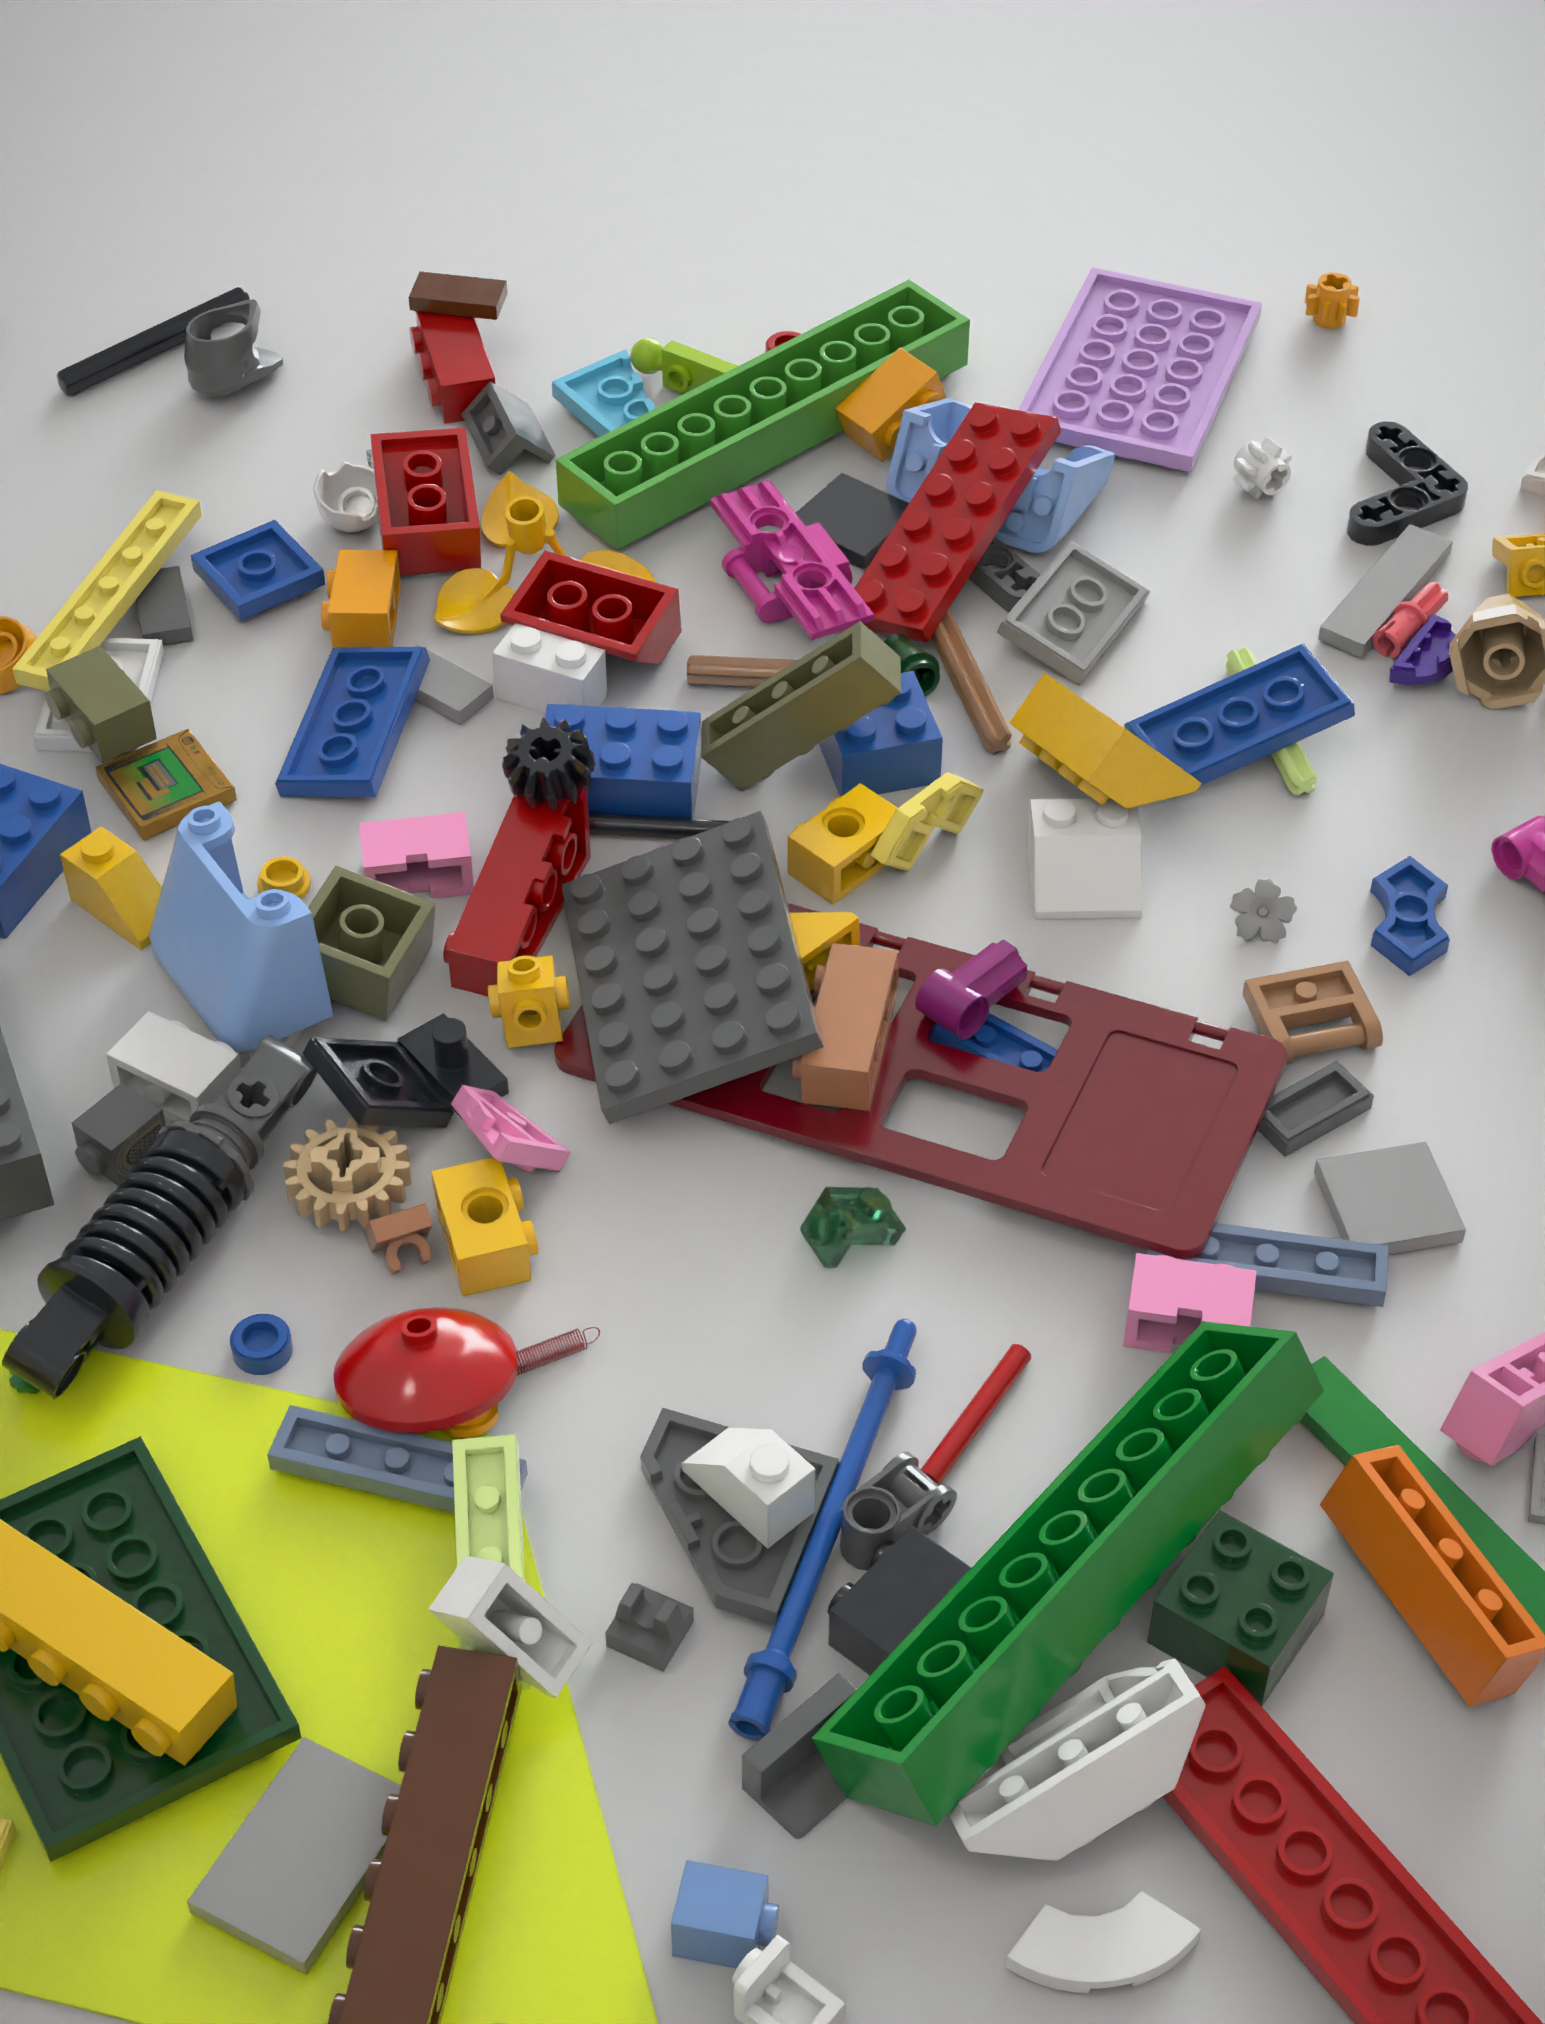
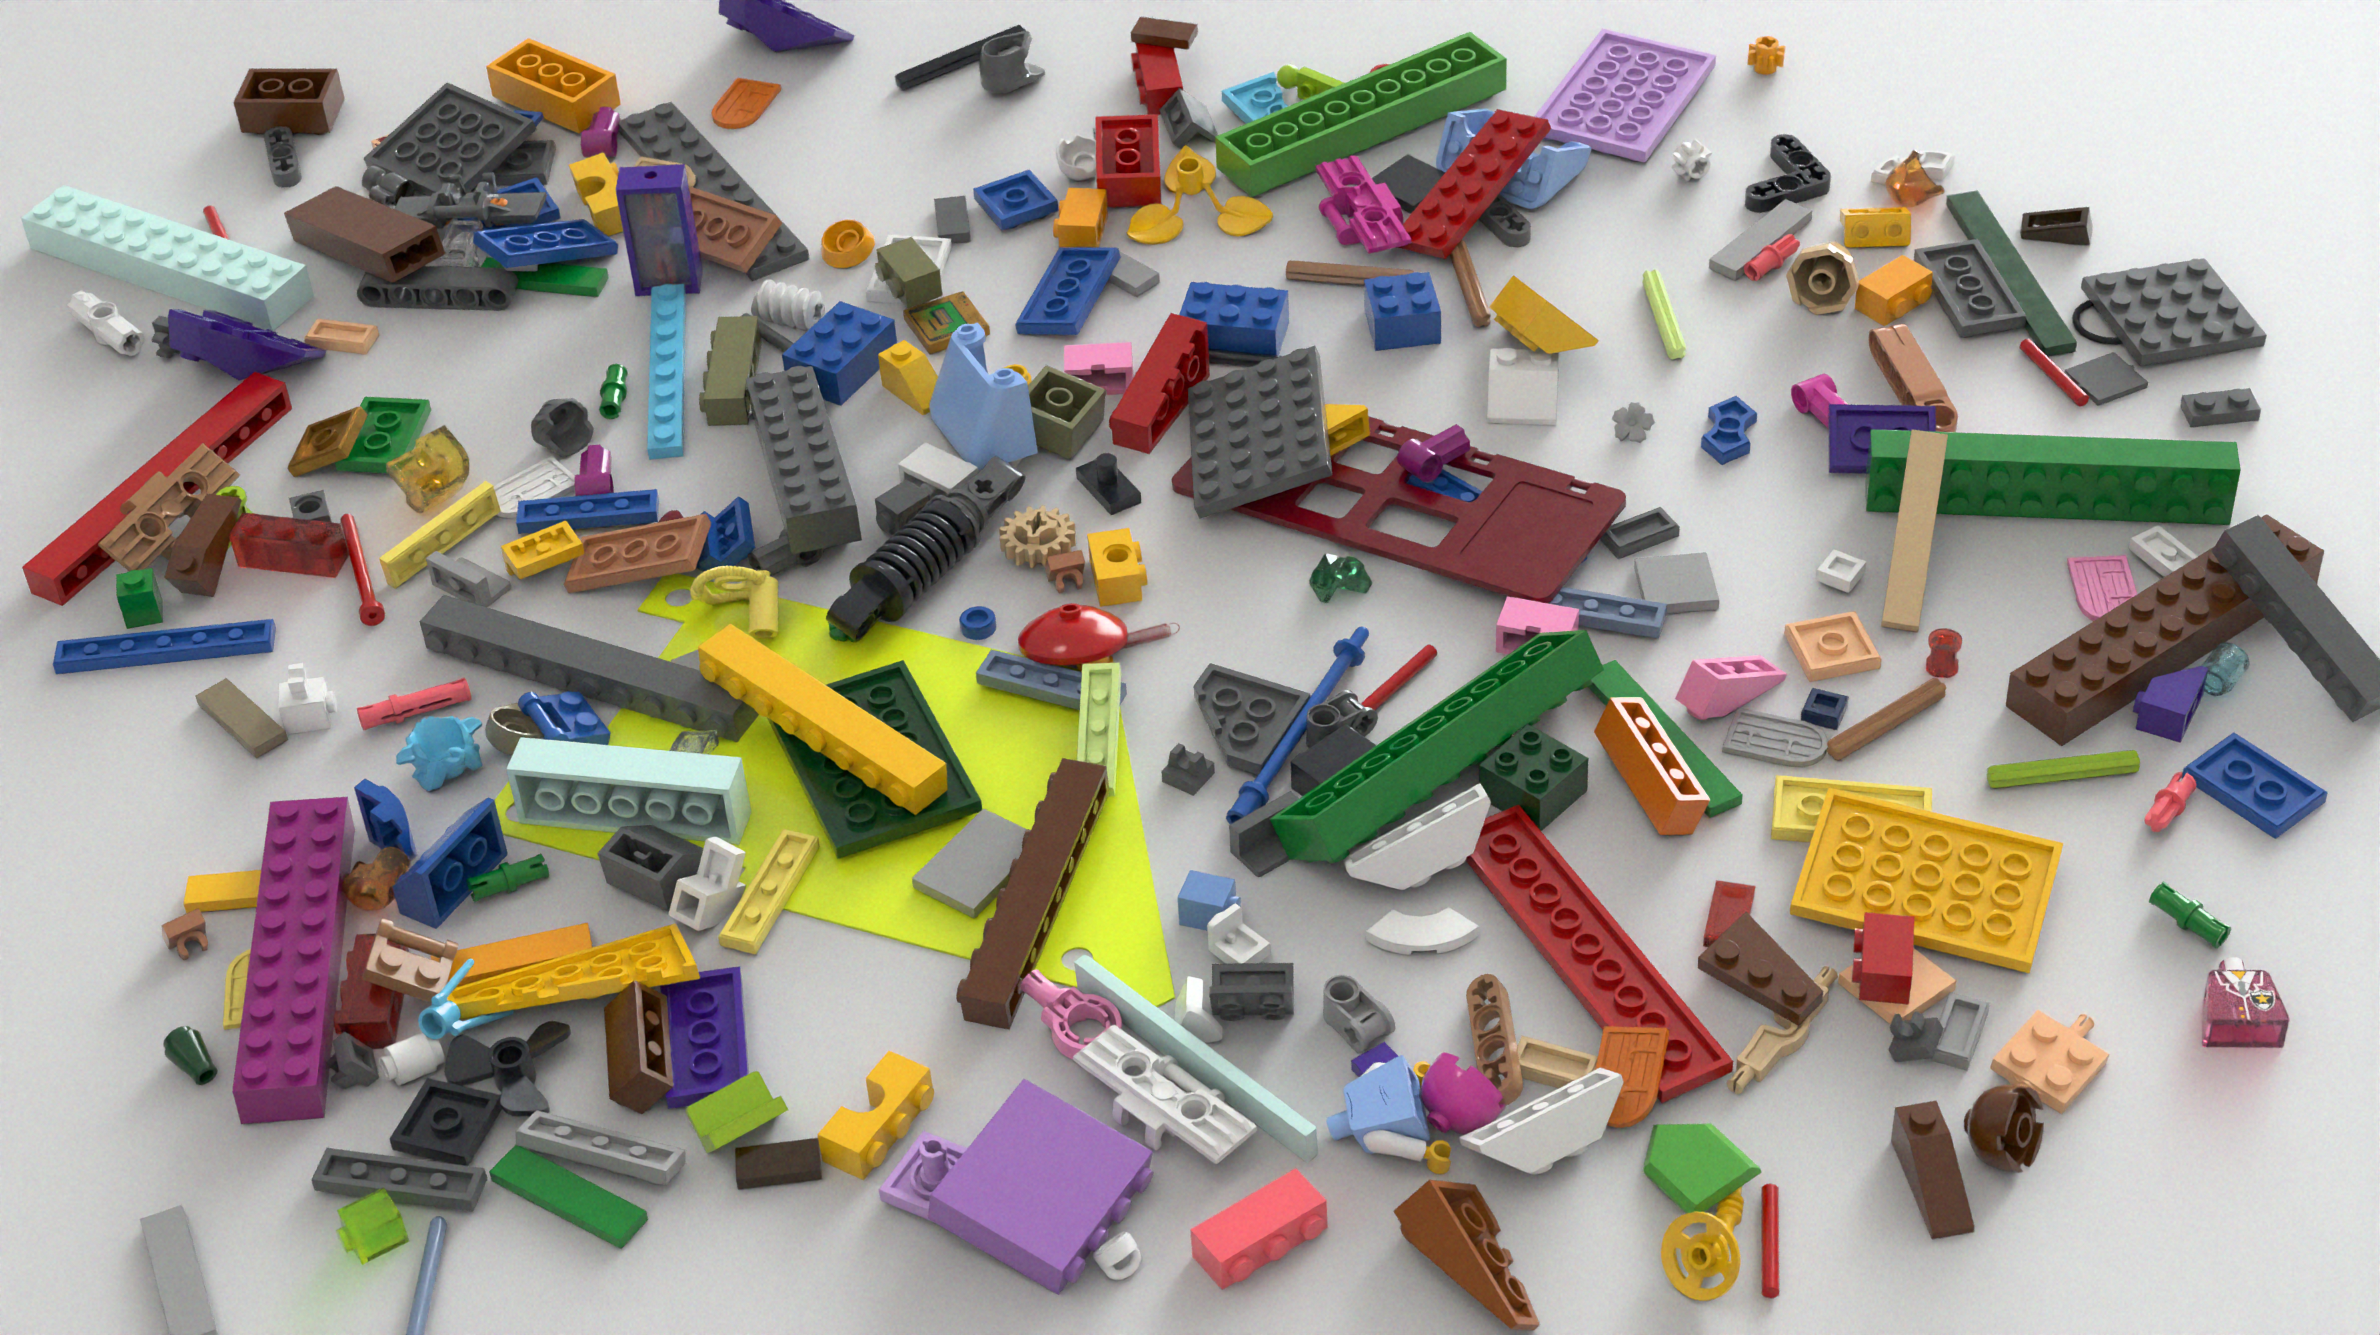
camera: 10 degrees right, 5 degrees down
(110, 586) = (921, 203): light yellow plate -> none
(378, 1083) = (1061, 488): black tile -> none
(507, 1617) = (1100, 743): white slope -> none
(508, 1132) = (1137, 519): bright pink wing -> none
(529, 1000) = (1158, 448): yellow brick -> none
(546, 669) = (1193, 261): white brick -> none
(548, 764) = (1183, 310): black gear -> none
(598, 608) = (1231, 228): red slope -> none
(756, 1480) = (1259, 698): white slope -> none
(801, 706) = (1350, 287): olive brick -> none
(835, 845) = (1372, 372): yellow brick -> none
(854, 1017) = (1356, 468): nougat brick -> none
(875, 408) = (1431, 113): light orange brick -> none
(917, 660) = (1438, 271): dark green cone -> none
(942, 804) = (1435, 349): light yellow tile -> none
(1073, 612) = (1546, 244): light grey tile -> none
(1246, 715) = (1643, 310): blue tile -> none
(1313, 998) = (1652, 471): medium nougat plate -> none
(1426, 656) = (1773, 280): dark purple plate -> none

